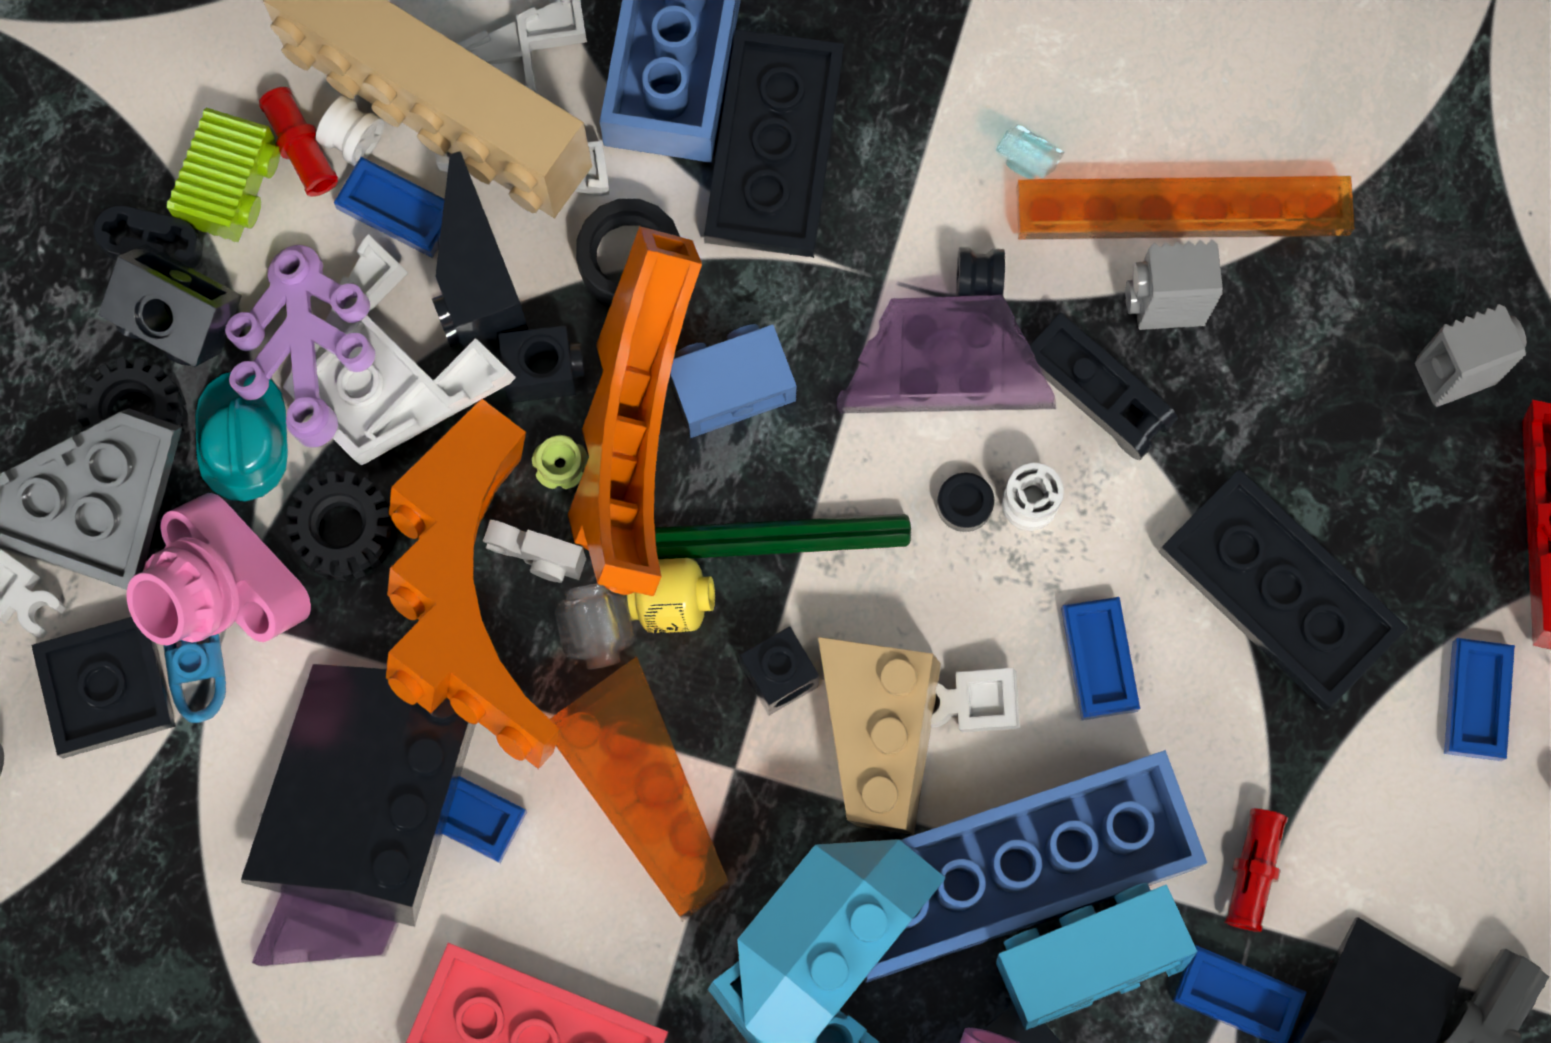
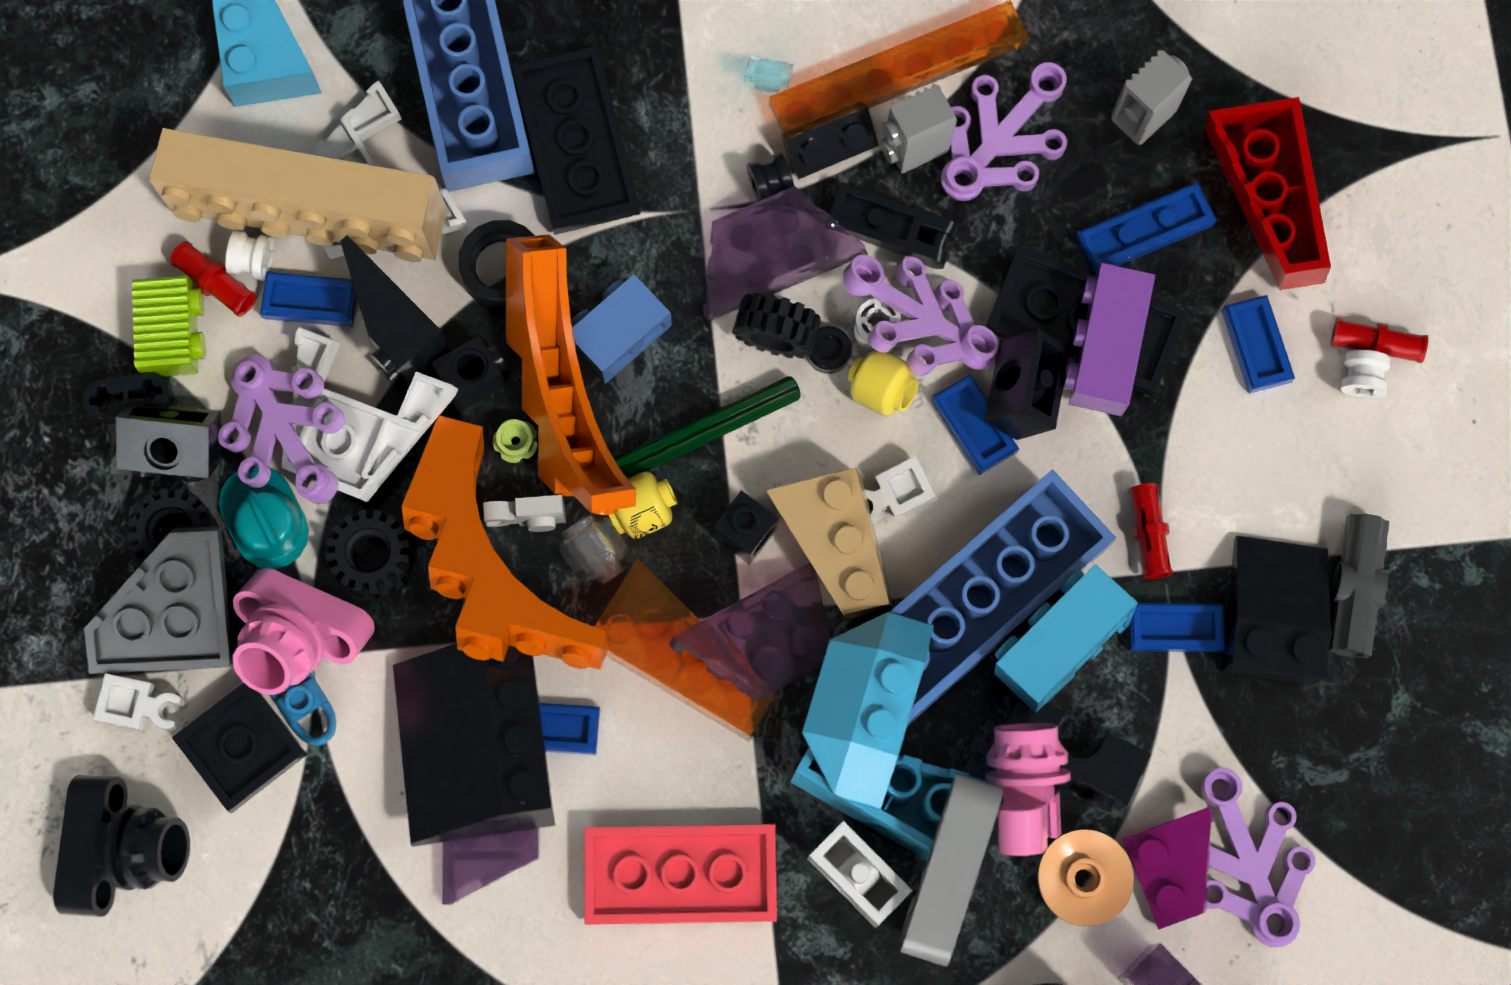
camera: 25 degrees left, 0 degrees up
(744, 808) = (763, 637): none -> clear purple wing
(913, 450) = (776, 325): none -> black tyre
(1011, 566) = (882, 383): none -> light yellow head
(1069, 257) = (830, 140): none -> black plate
(1093, 507) = (968, 342): none -> lavender plant
(1179, 637) = (1027, 384): none -> black brick
(1271, 334) = (1000, 139): none -> lavender plant
(1299, 623) = (1109, 339): none -> medium lavender brick
(1401, 508) = (1146, 228): none -> blue tile

